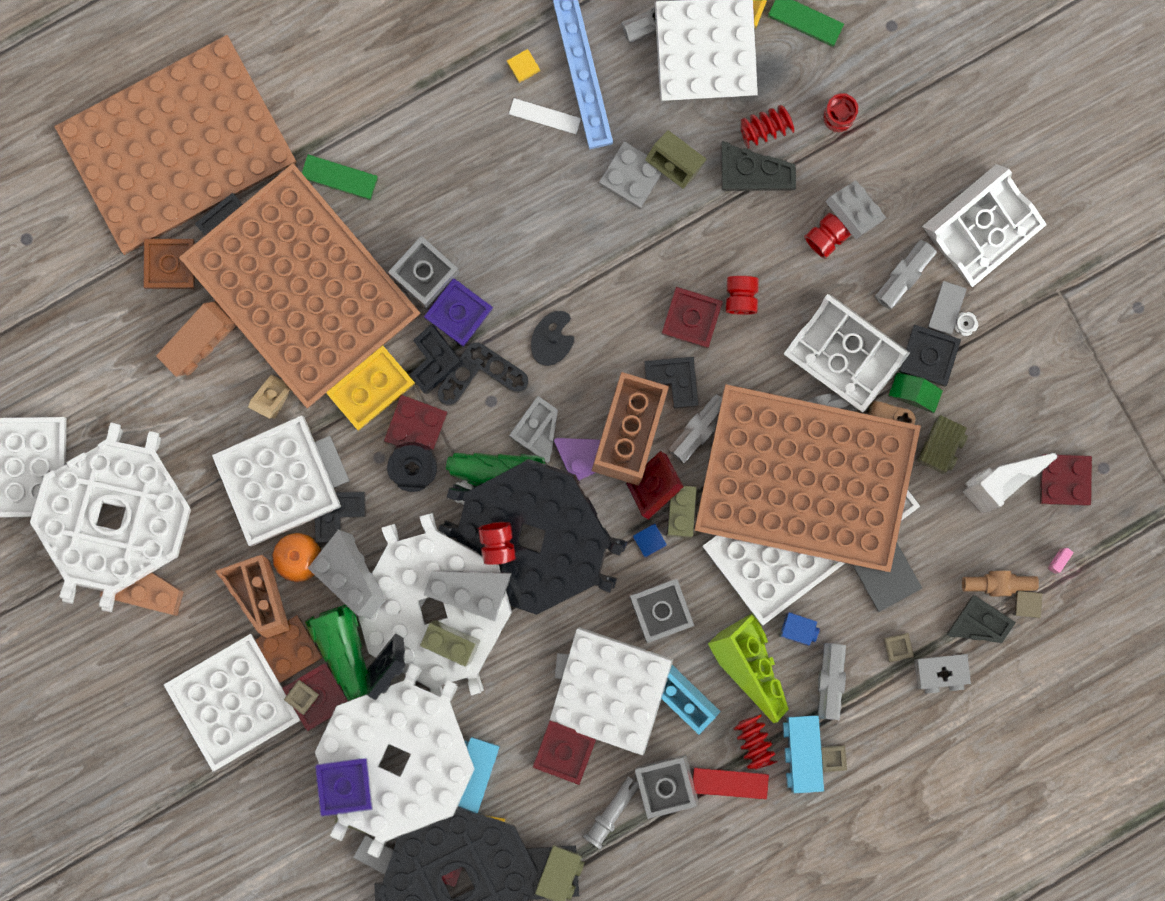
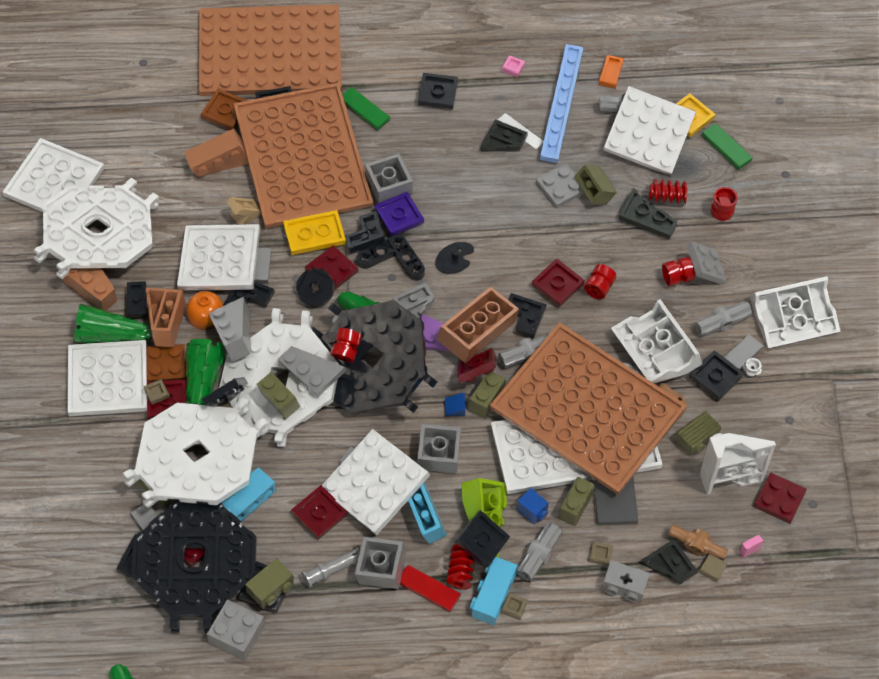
camera: 30 degrees right, 25 degrees down
(197, 641) = (98, 326): none -> green cone
(208, 583) = (136, 299): none -> black plate
(344, 787) = (151, 446): dark purple plate -> none
(417, 108) = (438, 91): none -> black plate
(491, 23) = (513, 66): none -> bright pink tile
(523, 65) = (521, 96): yellow tile -> none
(531, 140) = (503, 138): none -> pearl dark grey wing
(768, 708) = (482, 539): none -> black plate
(844, 600) = (576, 501): none -> olive brick
(916, 392) = (696, 394): green slope -> none

